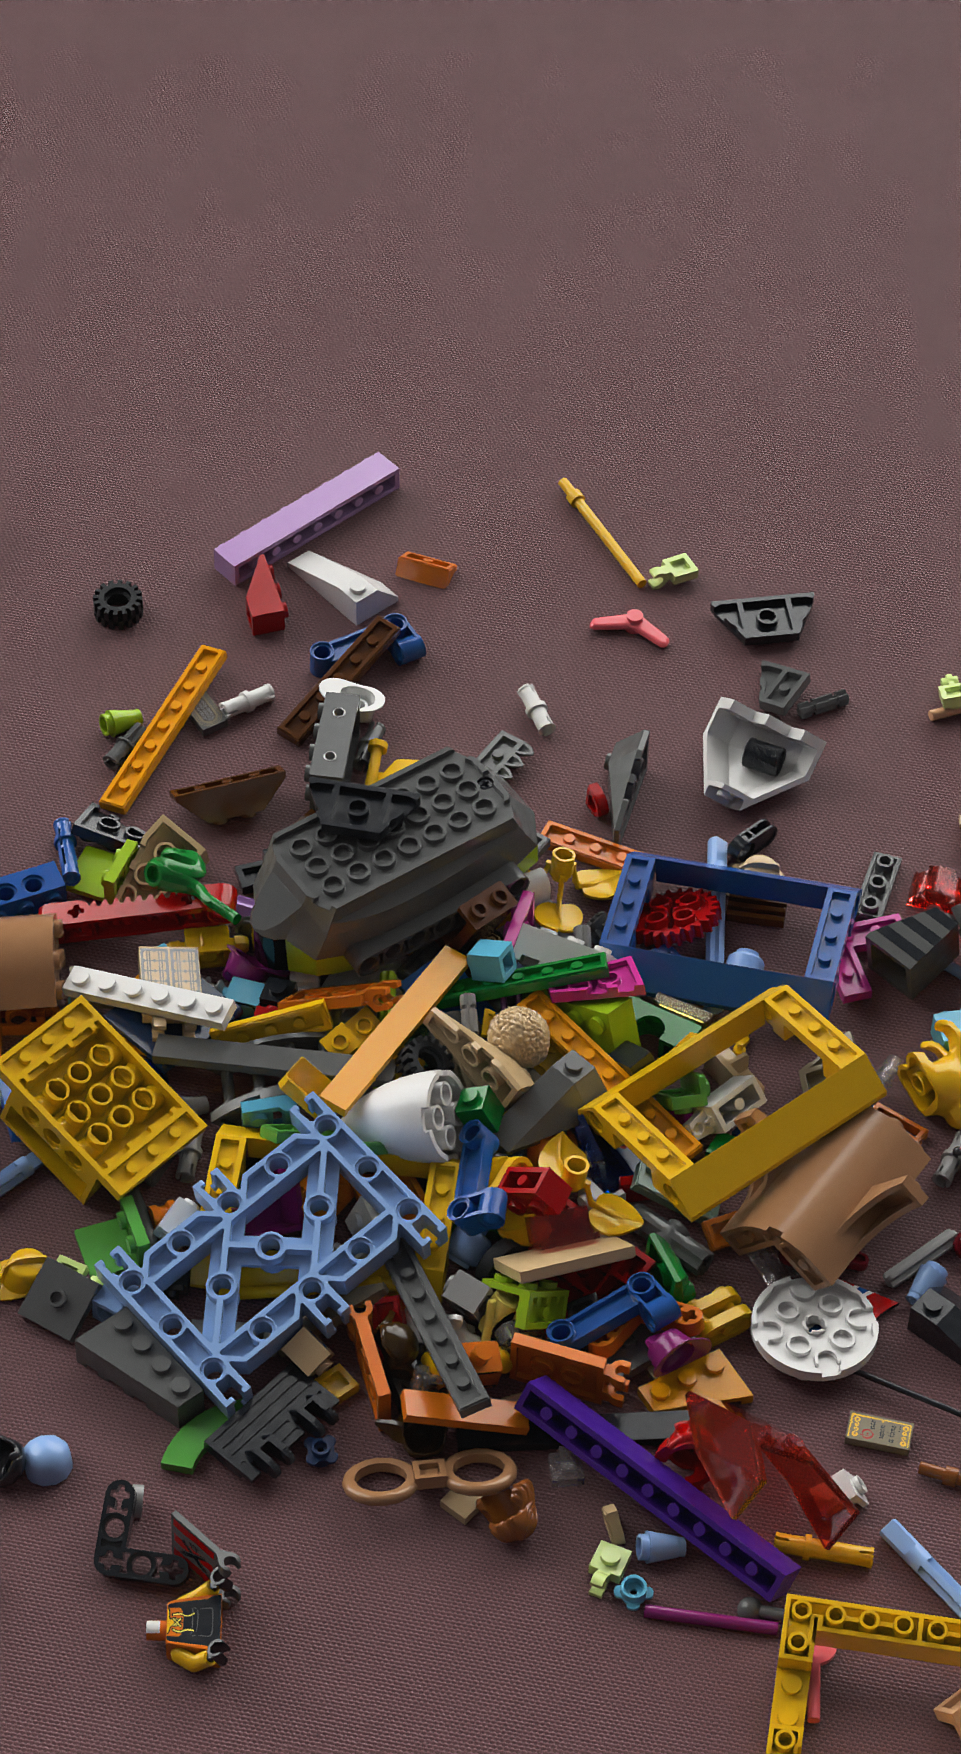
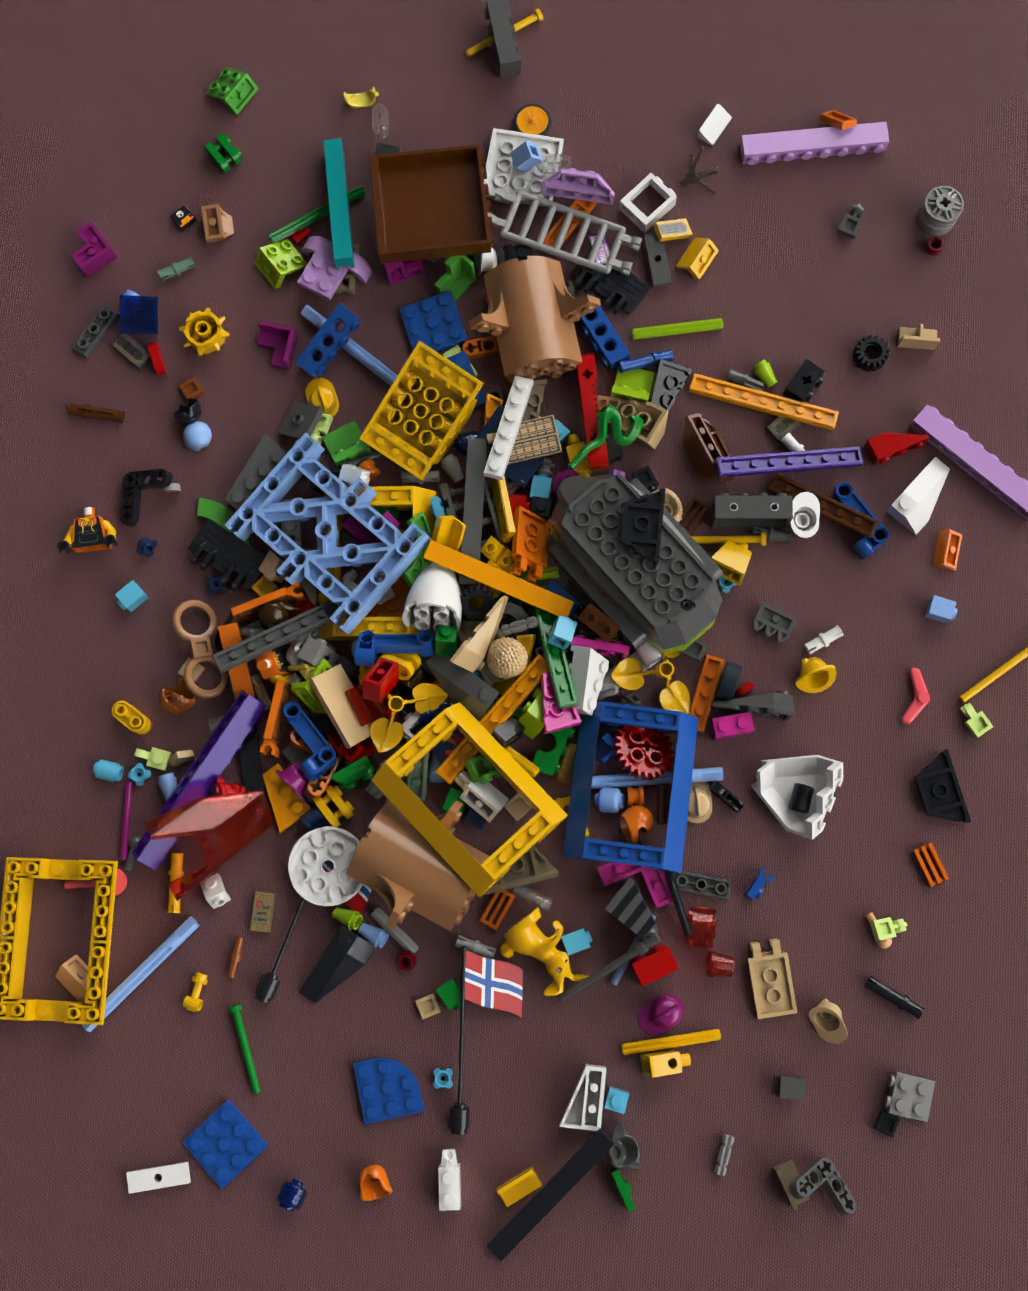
camera: 90 degrees right, 30 degrees up
(21, 814) = (677, 328): none -> lime axle
(107, 554) = (918, 338): none -> tan panel
(144, 679) = (807, 373): none -> black brick
(202, 1554) = (127, 530): dark grey flag -> none
(234, 1543) = (143, 543): none -> dark blue plate
(267, 704) = (788, 461): none -> dark purple tile
(319, 1575) = (131, 596): none -> medium azure brick
(512, 583) = (941, 609): none -> light blue brick
(535, 1588) = (131, 717): none -> yellow brick
(584, 809) = (729, 681): none -> black wheel
(586, 722) = (815, 675): none -> yellow helmet
(623, 1633) = (108, 770): none -> medium azure brick
(650, 819) = (732, 726): none -> dark pink brick
(735, 1344) = (313, 818): none -> dark blue plate
(740, 937) = (635, 796): none -> orange wheel
(778, 937) = (636, 819): none -> orange helmet
(780, 687) = (874, 805): dark grey wing -> none
(822, 704) = (865, 836): dark grey axle -> none
(865, 642) = (937, 861): none -> orange tile
(886, 824) = (755, 889): none -> blue plate
(896, 1312) = (348, 918): none -> lime cone
(904, 905) = (678, 904): none -> black bar

